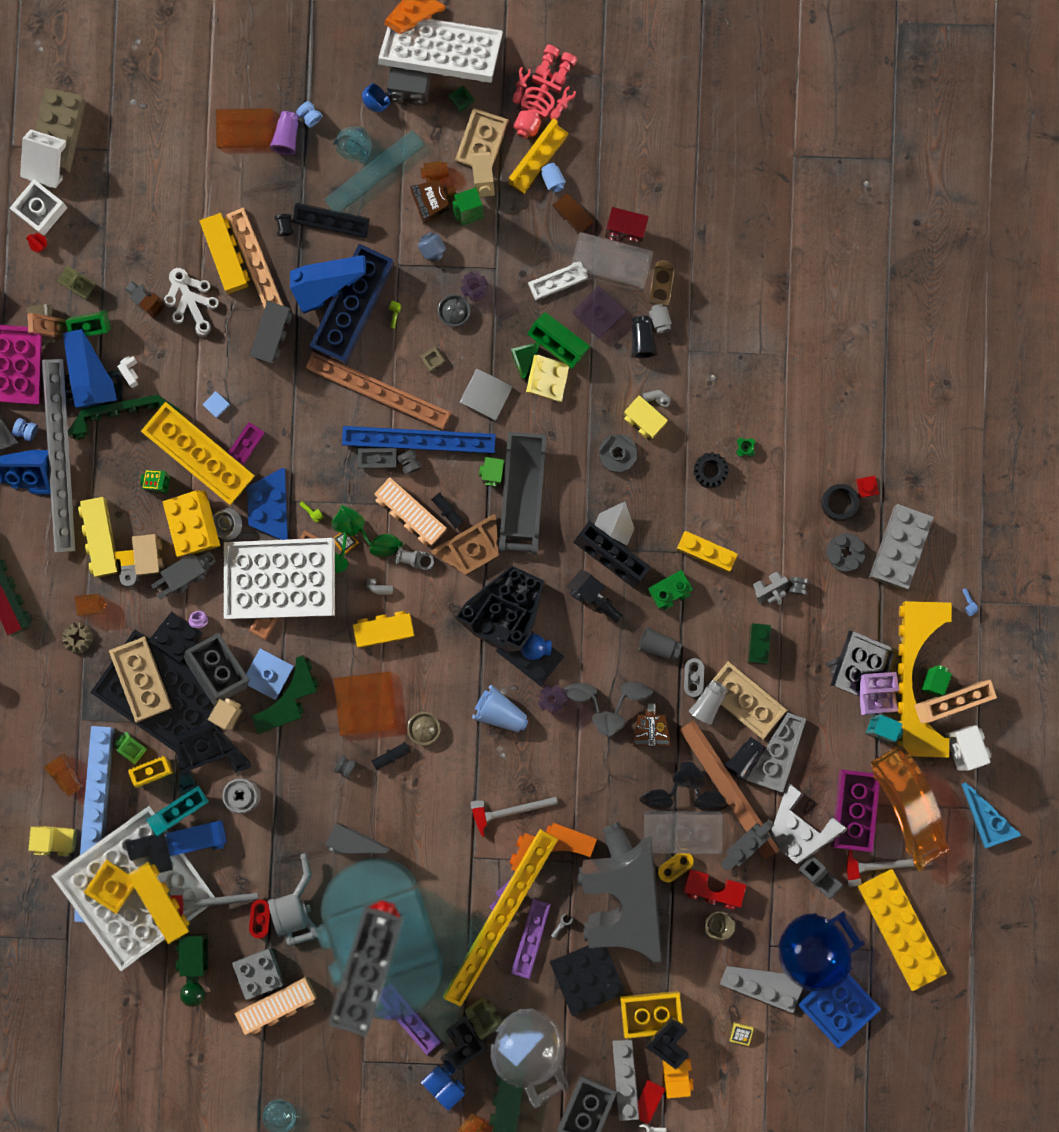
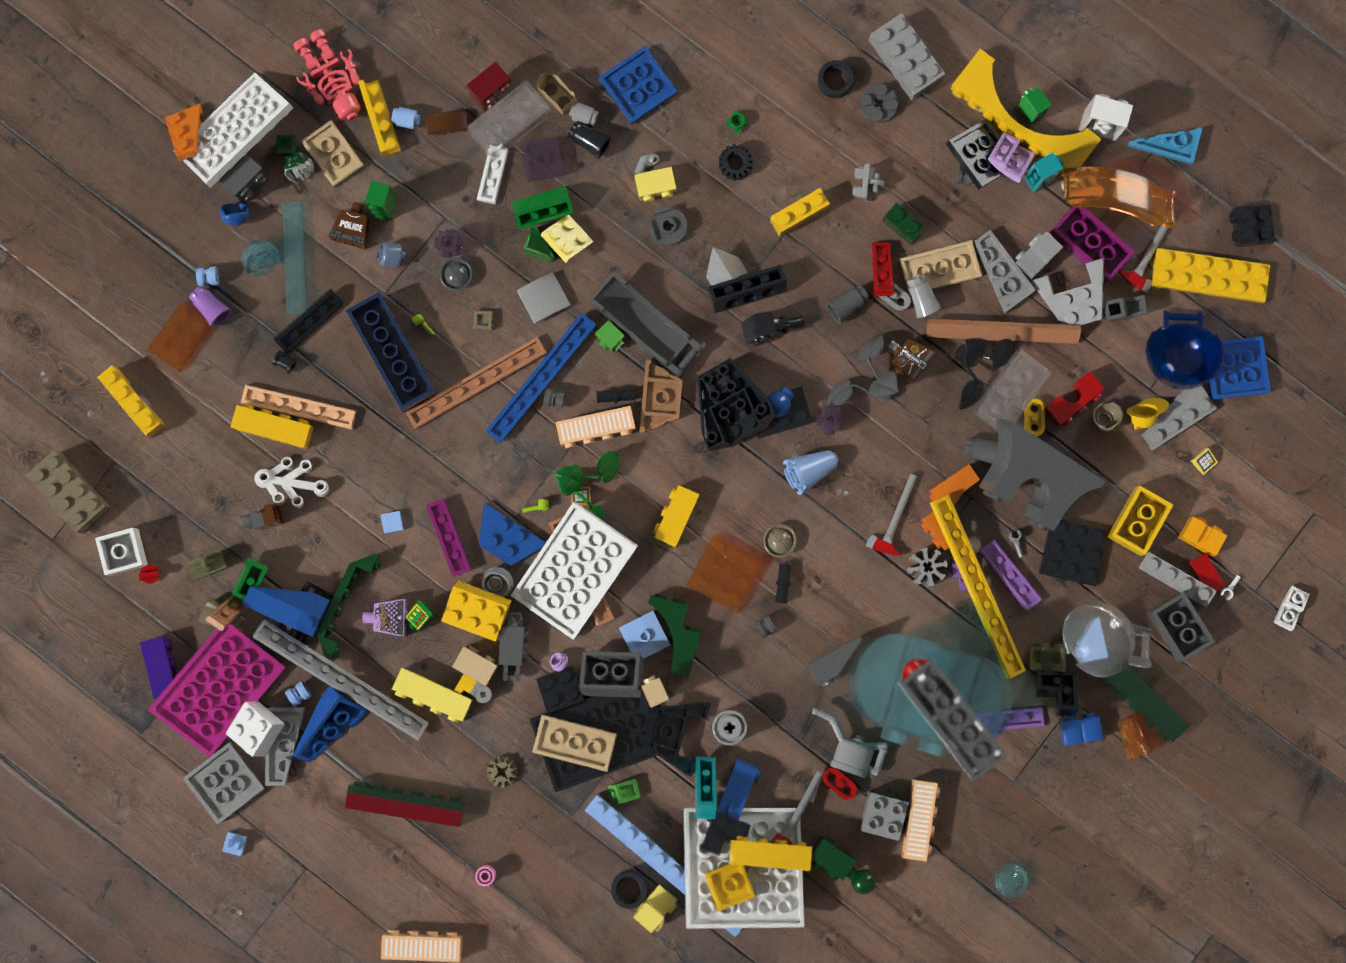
camera: 55 degrees left, 0 degrees up
(39, 808) = (629, 904): none -> black tyre
(41, 158) = (82, 519): white panel -> none
(64, 775) = (607, 862): clear orange plant -> none
(89, 605) = (482, 742): clear orange brick -> none
(129, 375) = (316, 576): white bracket -> none
(136, 457) = (388, 617): none -> torso
(151, 771) = (656, 787): yellow brick -> none
(161, 135) = (129, 400): none -> yellow arch
(197, 453) = (422, 564): yellow plate -> none
(271, 332) = (366, 433): dark grey brick -> none
(319, 281) = (354, 363): blue wedge -> none
(377, 458) = (532, 422): dark grey plate -> none
(378, 589) = (640, 497): light grey arm -> none
(413, 558) = (635, 451): light grey connector -> none
(434, 171) = (330, 208): clear orange brick -> none
(449, 121) = (298, 167): none -> light grey piece
(483, 174) = (361, 169): tan slope -> none
(492, 869) = (928, 574): none -> light grey gear
(664, 1043) = (1171, 524): black plate -> none
(669, 590) = (809, 263): green brick -> none
(708, 653) = (882, 269): none -> red tile
(717, 345) = (638, 85): none -> blue plate
(745, 759) = (988, 301): black plant -> none
(746, 956) = (1147, 412): none -> yellow piece
(747, 845) = (1059, 347): dark grey hinge -> none
(798, 586) = (879, 159): dark grey wheel -> none
(812, 773) = (1041, 251): none -> light grey brick
(867, 486) = (838, 49): red plate -> none
(955, 701) = (1061, 101): light nougat brick -> none
(969, 935) = (1252, 225): none -> black plate
(972, 608) = (994, 36): medium blue hand -> none

